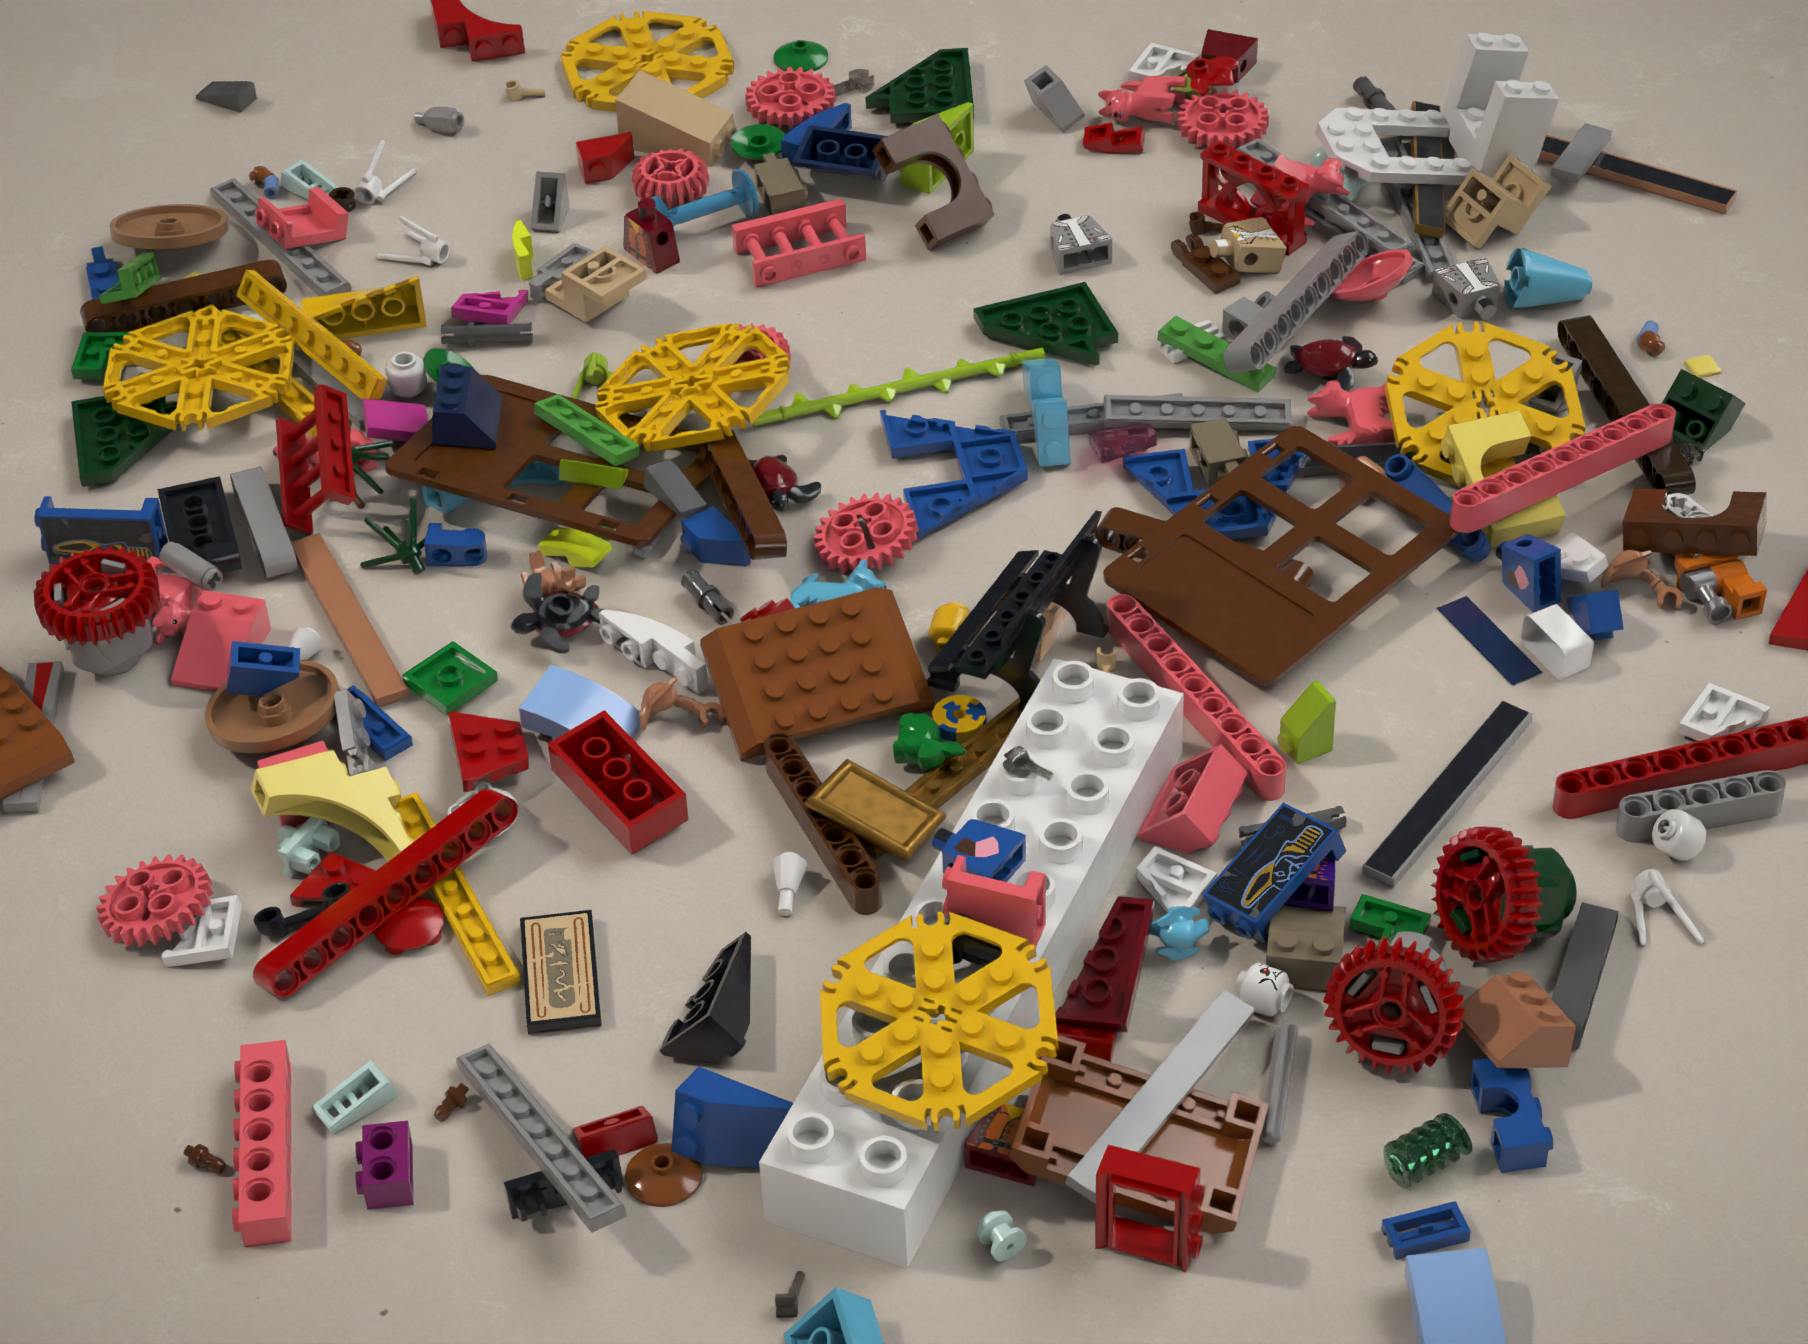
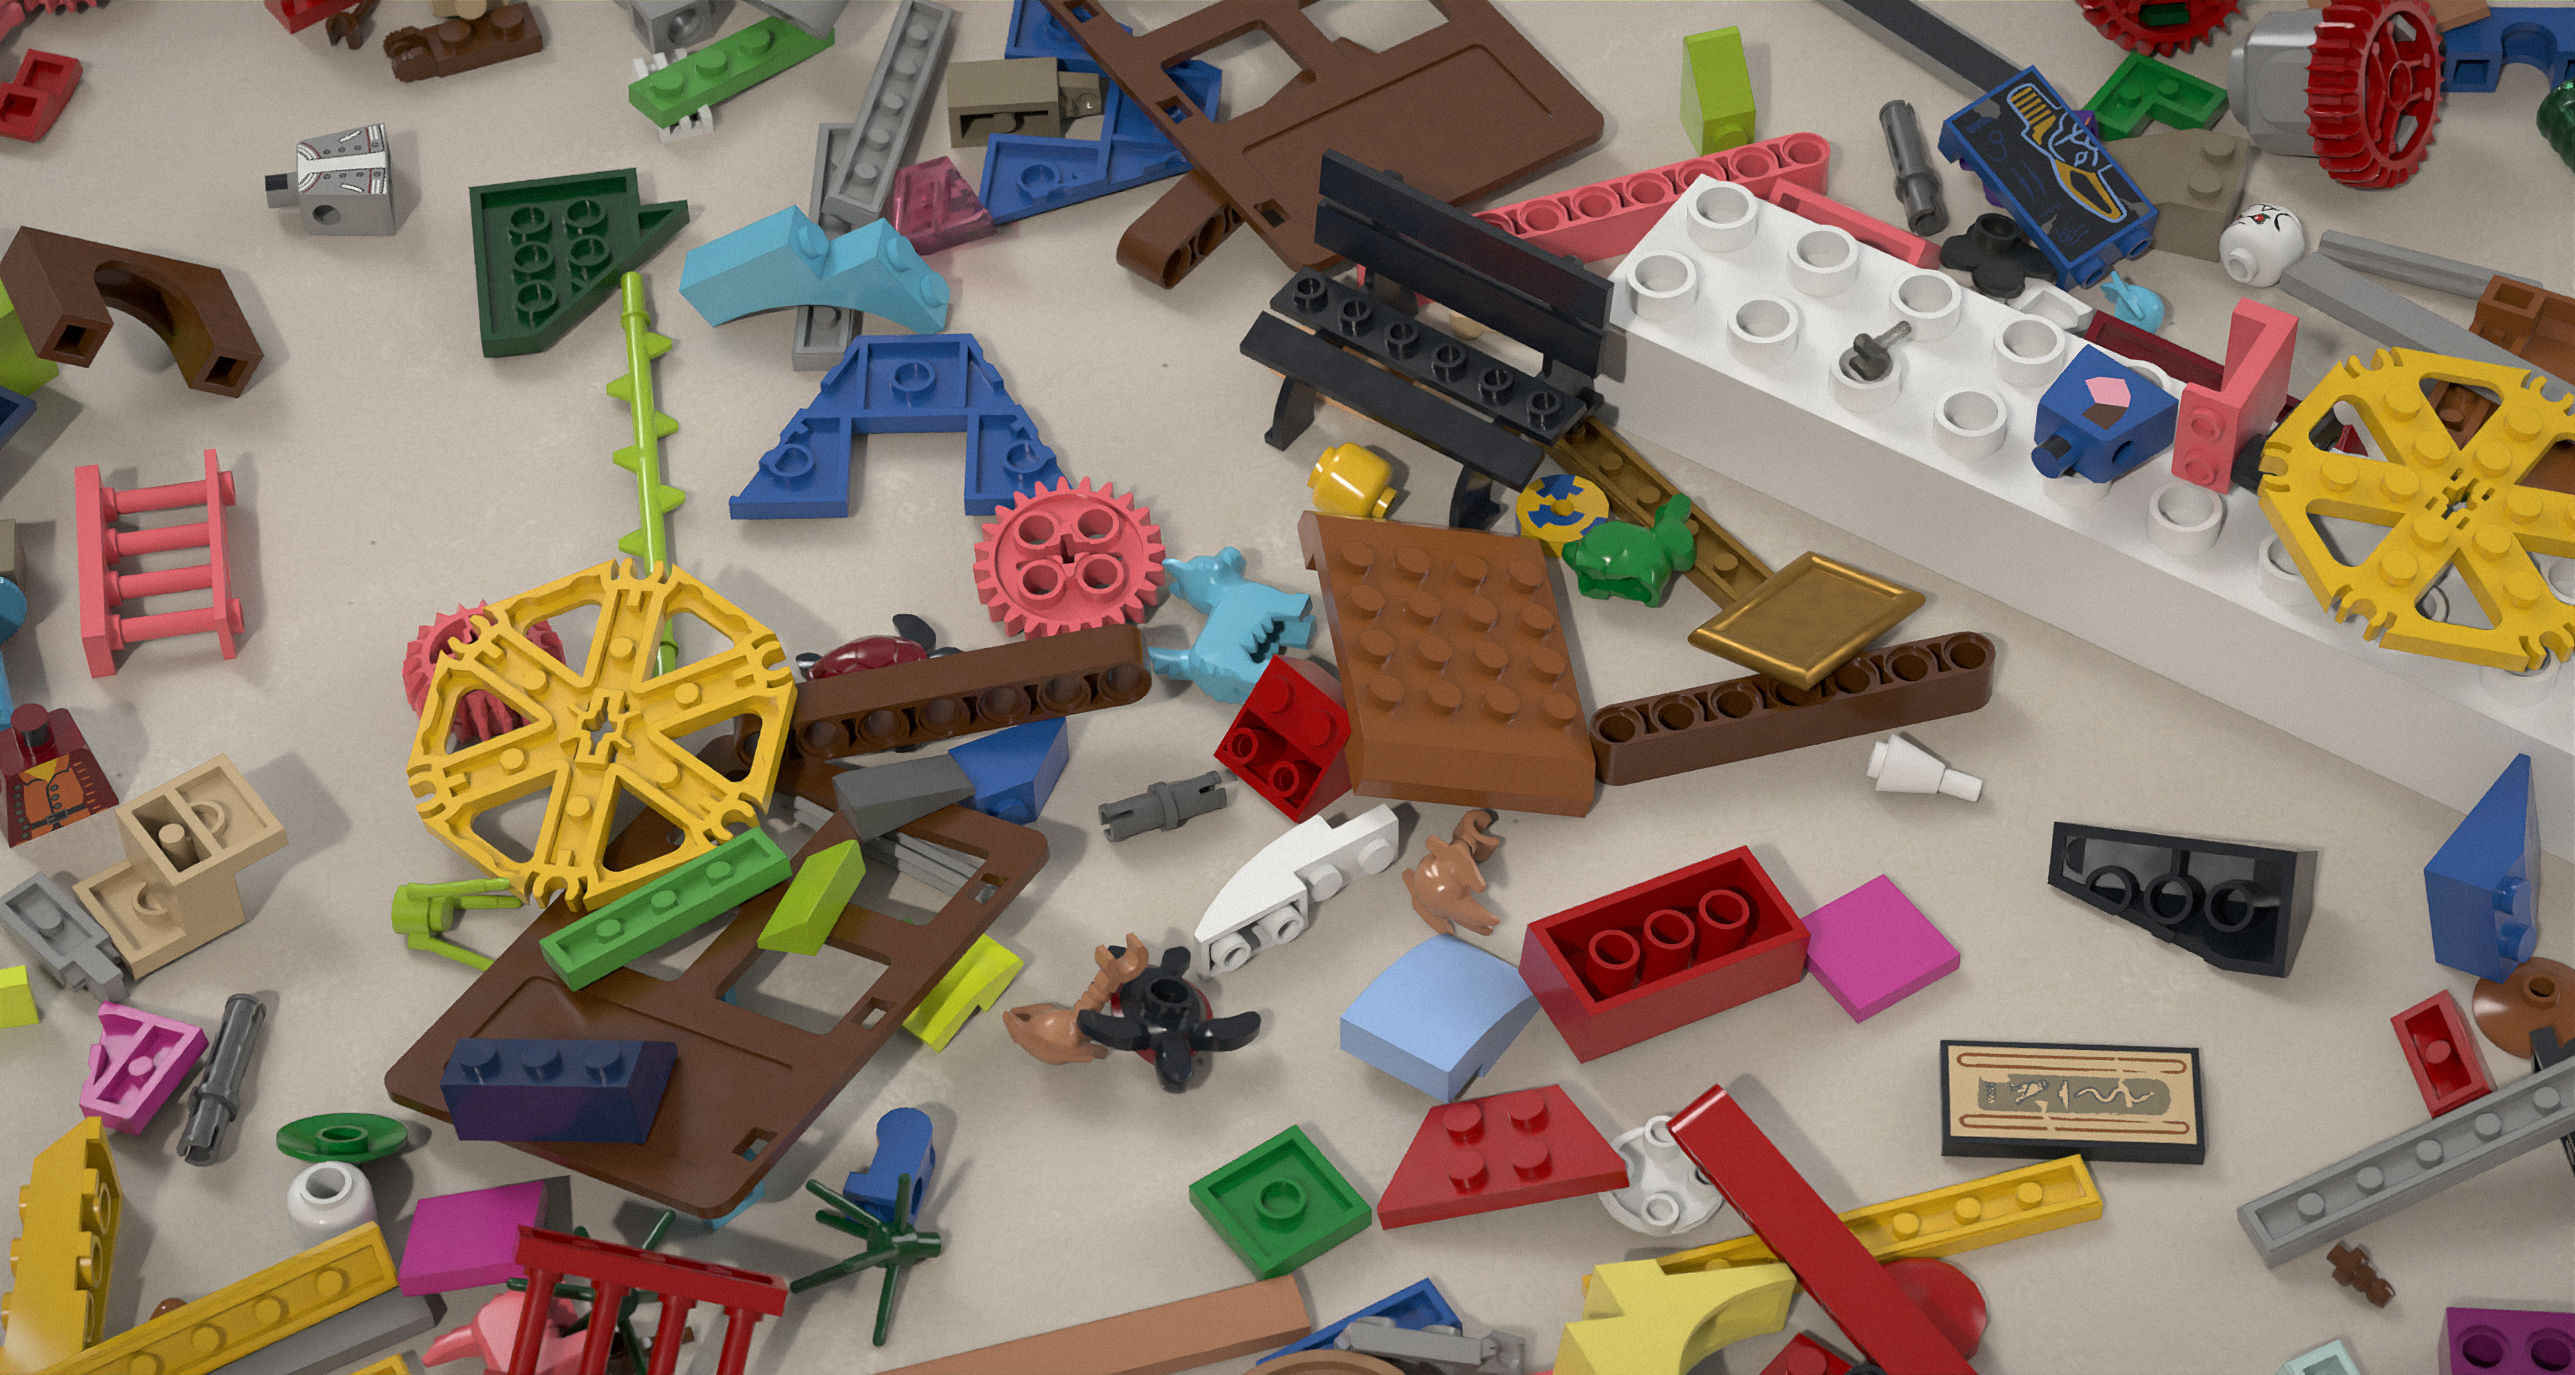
camera: 80 degrees left, 5 degrees up
(658, 879) = (1875, 949): none -> dark pink tile
(1203, 859) = (1995, 256): none -> pearl dark grey plate

